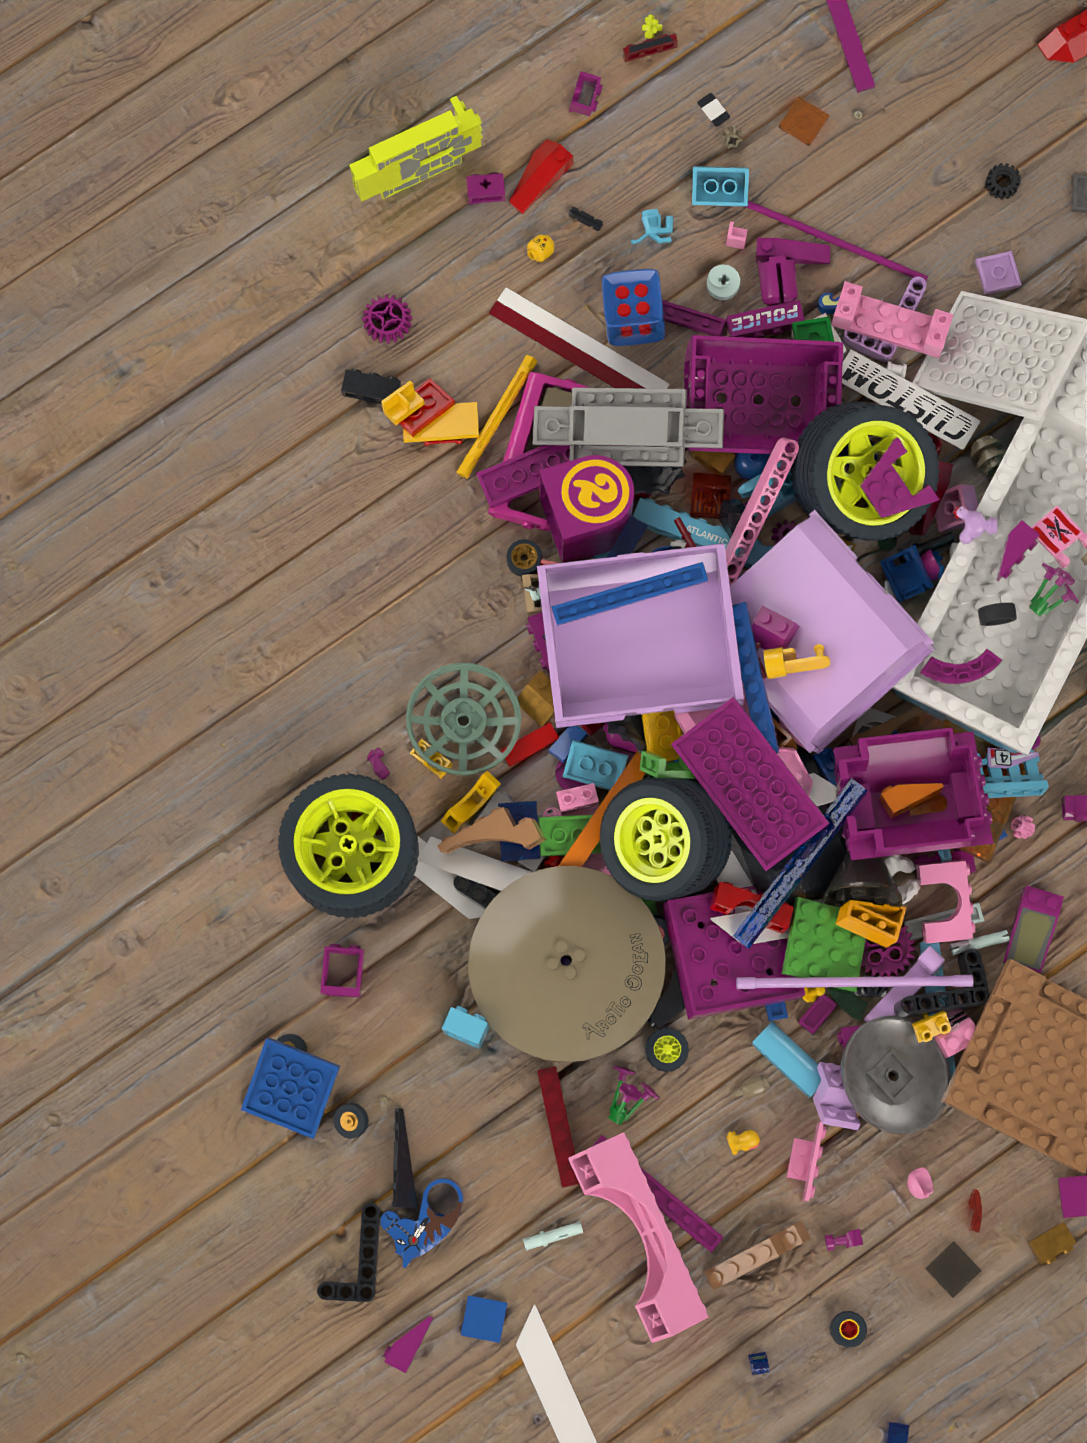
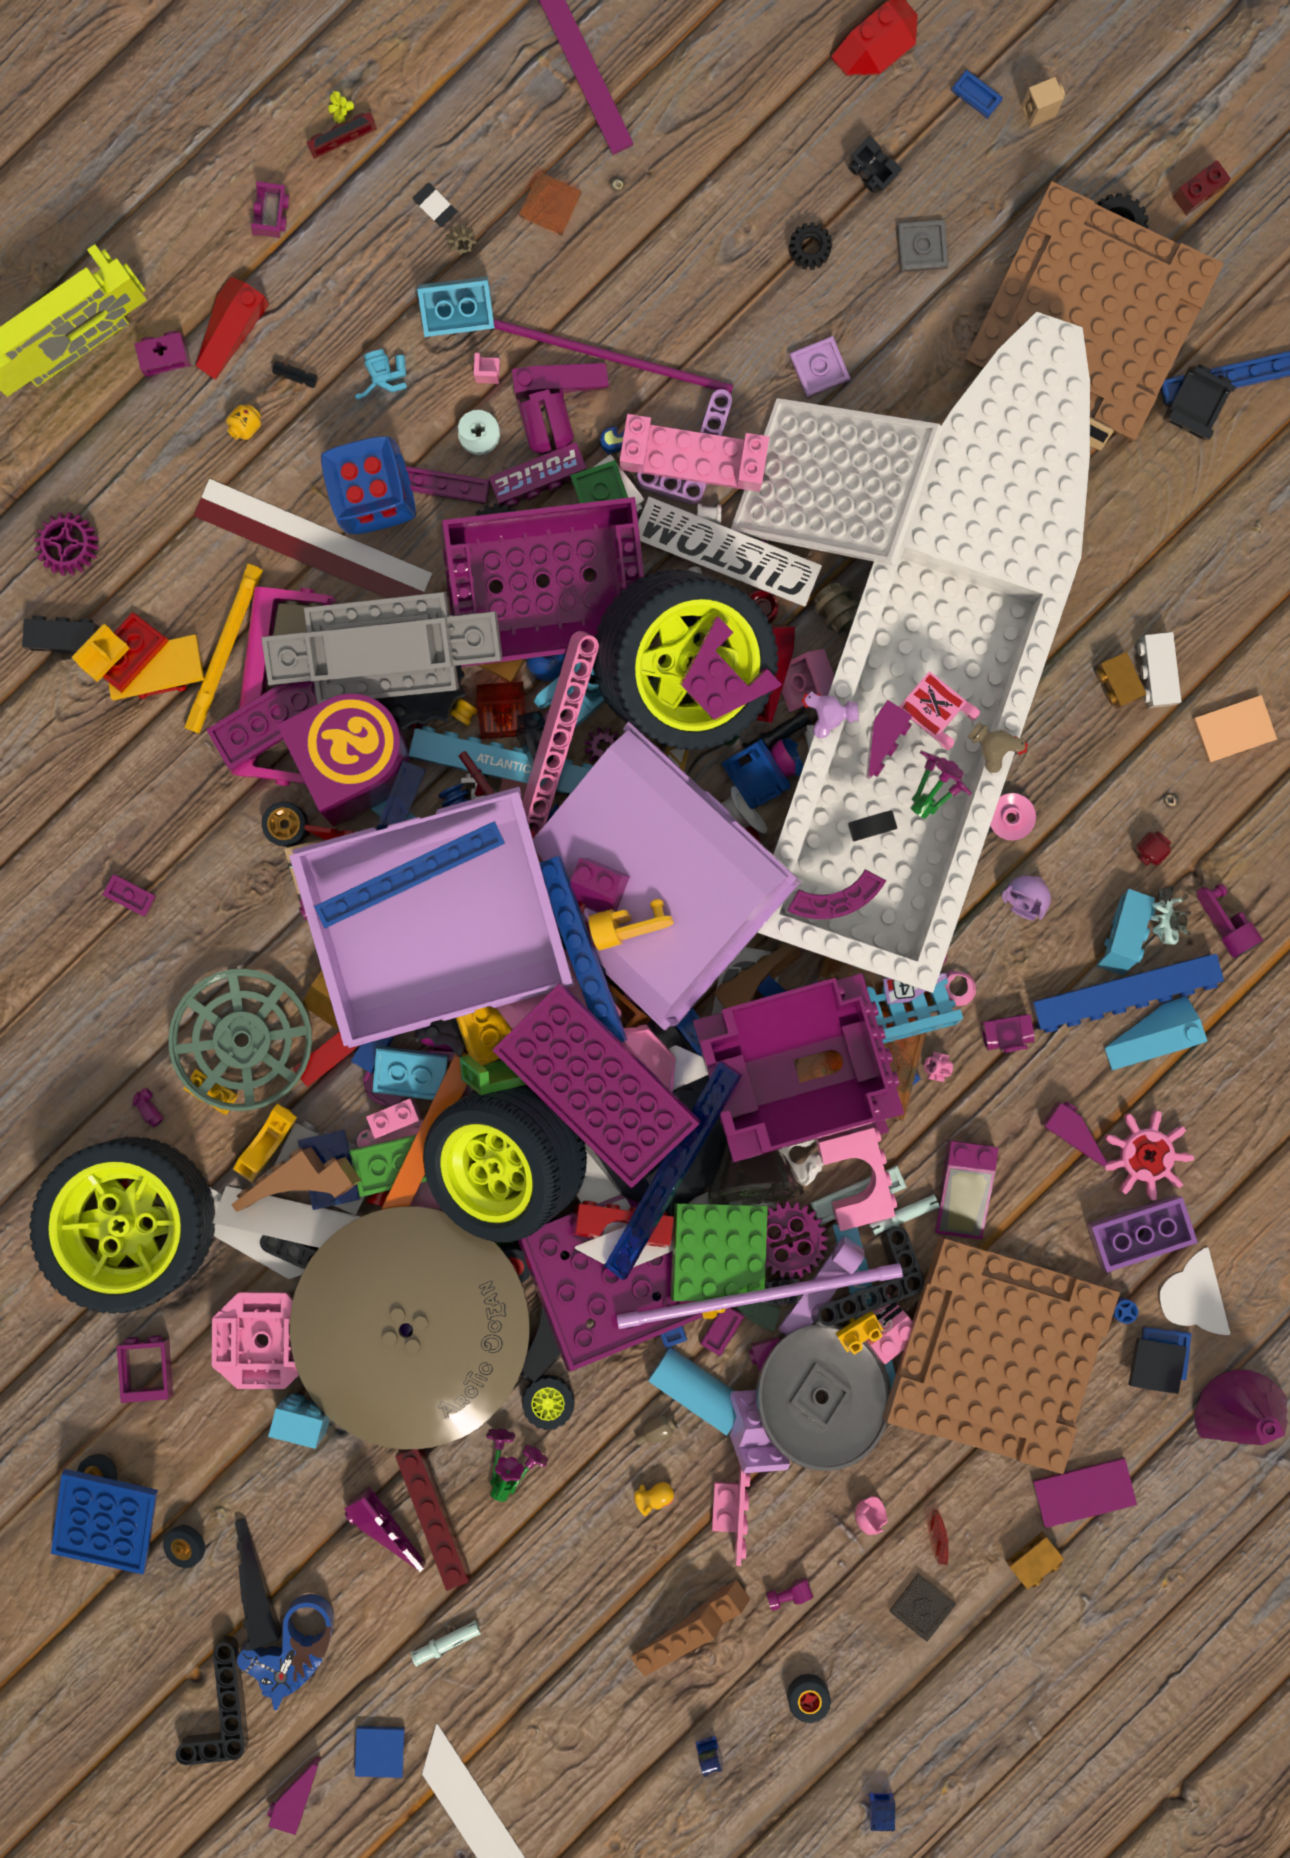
camera: 10 degrees left, 10 degrees up
(391, 594) = (129, 895): none -> magenta plate
(421, 956) = (236, 1343): none -> bright pink piece
(510, 1123) = (376, 1521): none -> magenta wedge
(669, 1297) = (592, 1703): bright pink arch -> none
(679, 492) = (463, 712): none -> yellow wheel
(680, 1213) = (560, 1573): magenta tile -> none
(872, 921) = (772, 1219): light orange wedge -> none
(907, 796) = (788, 1064): orange slope -> none
(1050, 777) = (971, 989): none -> bright pink piece
(1060, 128) = (873, 165): none -> black cylinder

